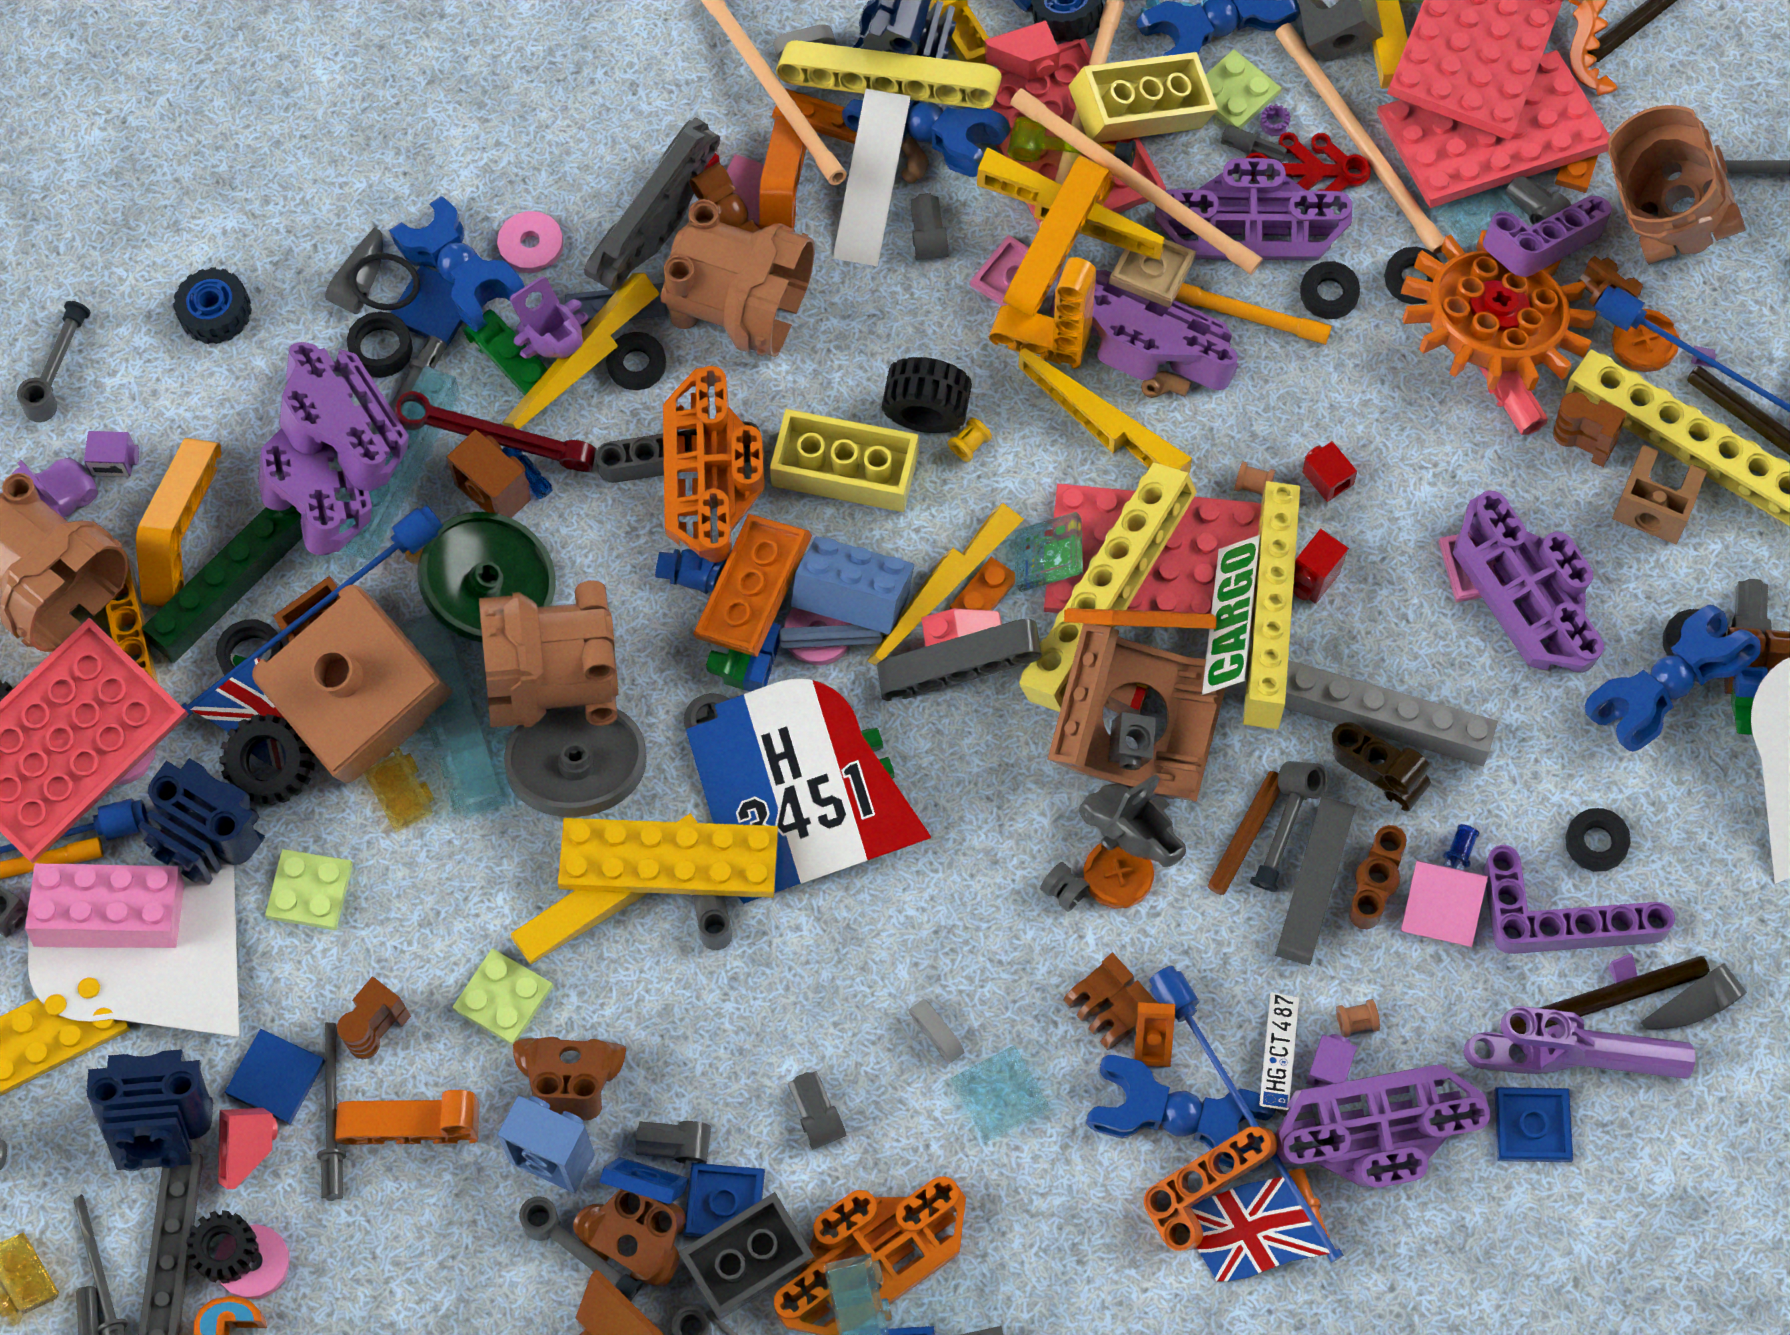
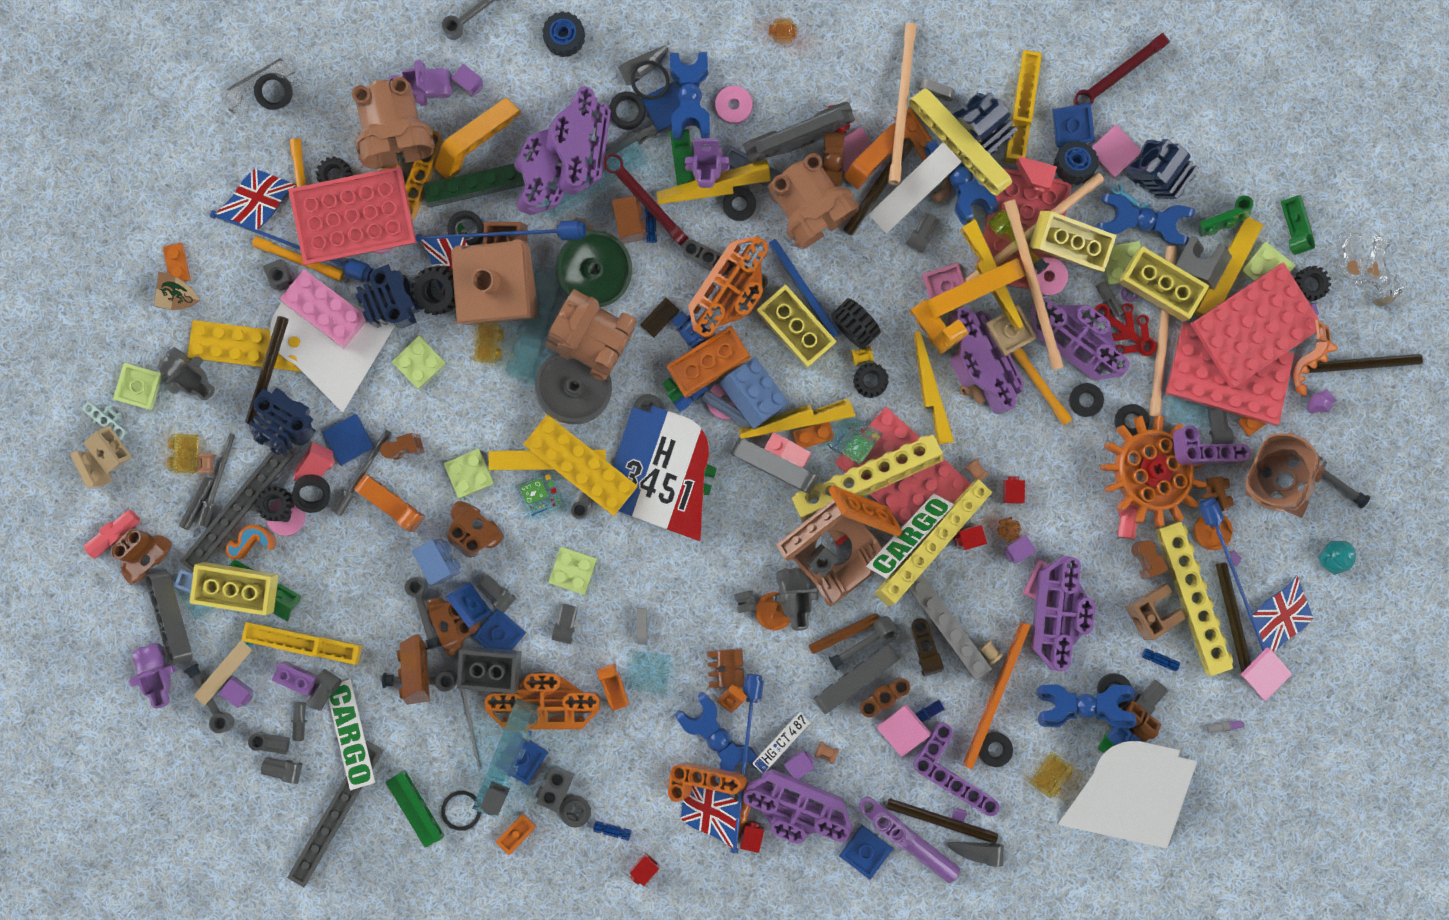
camera: 35 degrees right, 20 degrees up
(65, 1267) = (206, 463): none -> nougat bush
(72, 1054) = (269, 363): none -> dark brown axle
(295, 1204) = (307, 506): none -> black tyre
(530, 104) = (783, 30): none -> clear orange head
(634, 585) = (659, 317): none -> dark brown tile
(639, 952) = (541, 495): none -> tile
(769, 1027) = (572, 570): none -> yellowish green plate
(795, 399) = (802, 287): none -> blue tile
(820, 226) = (874, 193): none -> dark brown axle
(959, 1148) = (613, 686): none -> orange animal
(1007, 445) = (859, 380): none -> black tyre
(1161, 155) = (1060, 277): none -> bright pink tile
(1309, 70) = (1163, 284): none -> light yellow brick
(1346, 1222) = (752, 836): none -> red brick
(1368, 515) = (1009, 529): none -> clear orange gear
(1401, 541) = (1019, 549): none -> medium lavender brick
(1478, 705) = (990, 652): none -> tan bush
(1535, 762) = (996, 695): none -> orange tile
(1644, 82) = (1321, 402): none -> medium lavender rock
(1707, 818) = (1051, 775): none -> clear yellow bracket
(1722, 554) = (1161, 659): none -> clear blue axle

